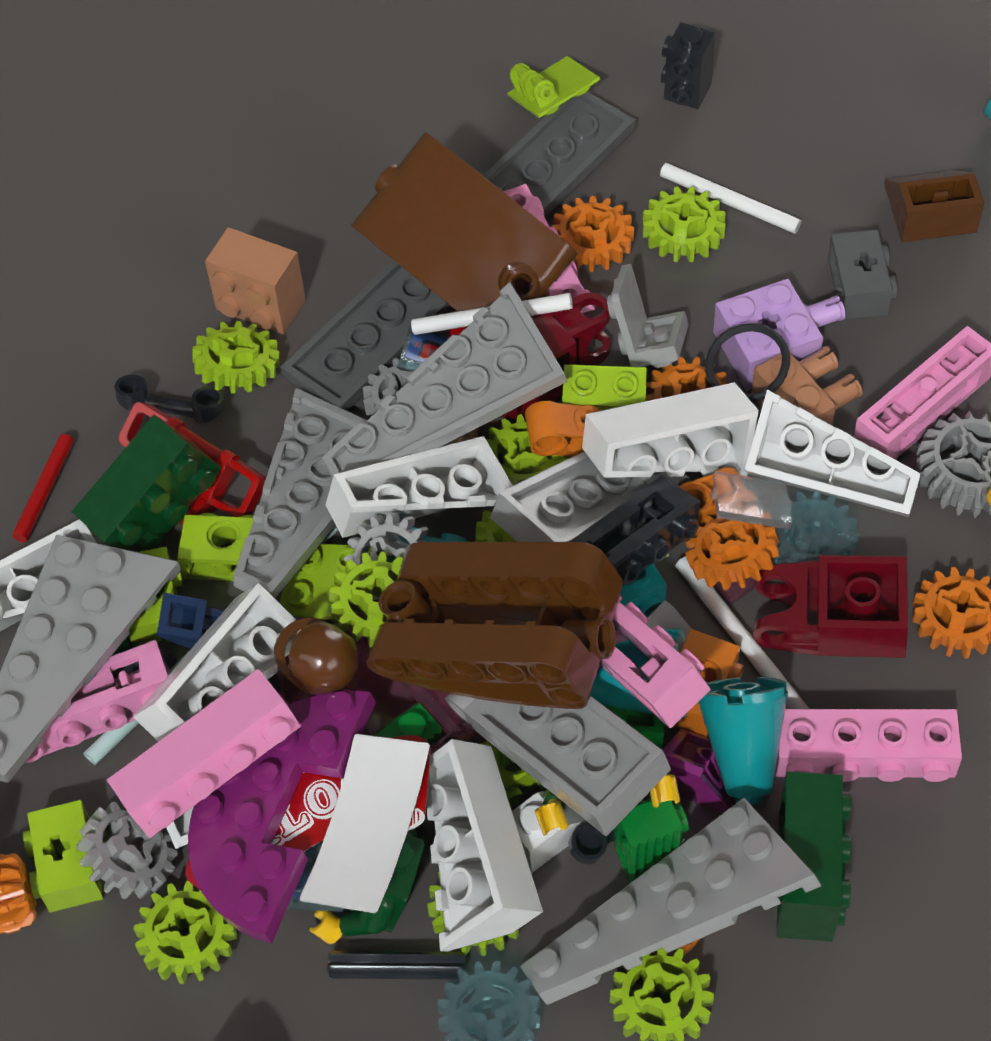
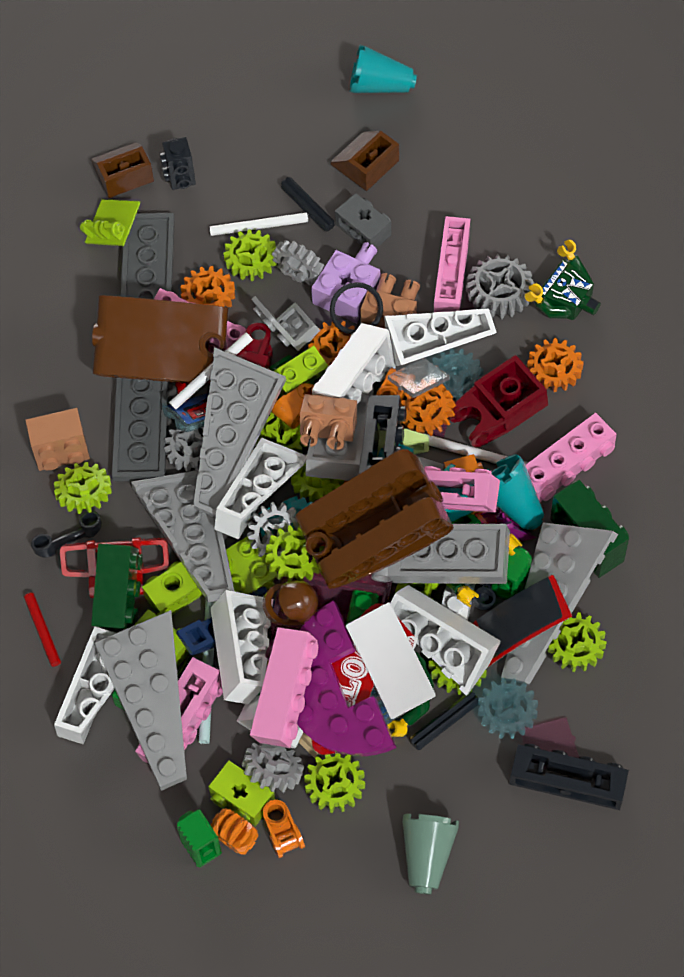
camera: 40 degrees left, 5 degrees up
(64, 947) = (284, 832): none -> orange piece
(572, 463) = (327, 419): none -> nougat brick
(606, 905) = (525, 616): none -> black sticker
(620, 38) = (123, 169): none -> reddish brown slope
(680, 579) = (416, 440): none -> yellowish green slope
(726, 261) = (297, 262): none -> light grey gear
(811, 212) = (307, 204): none -> black axle

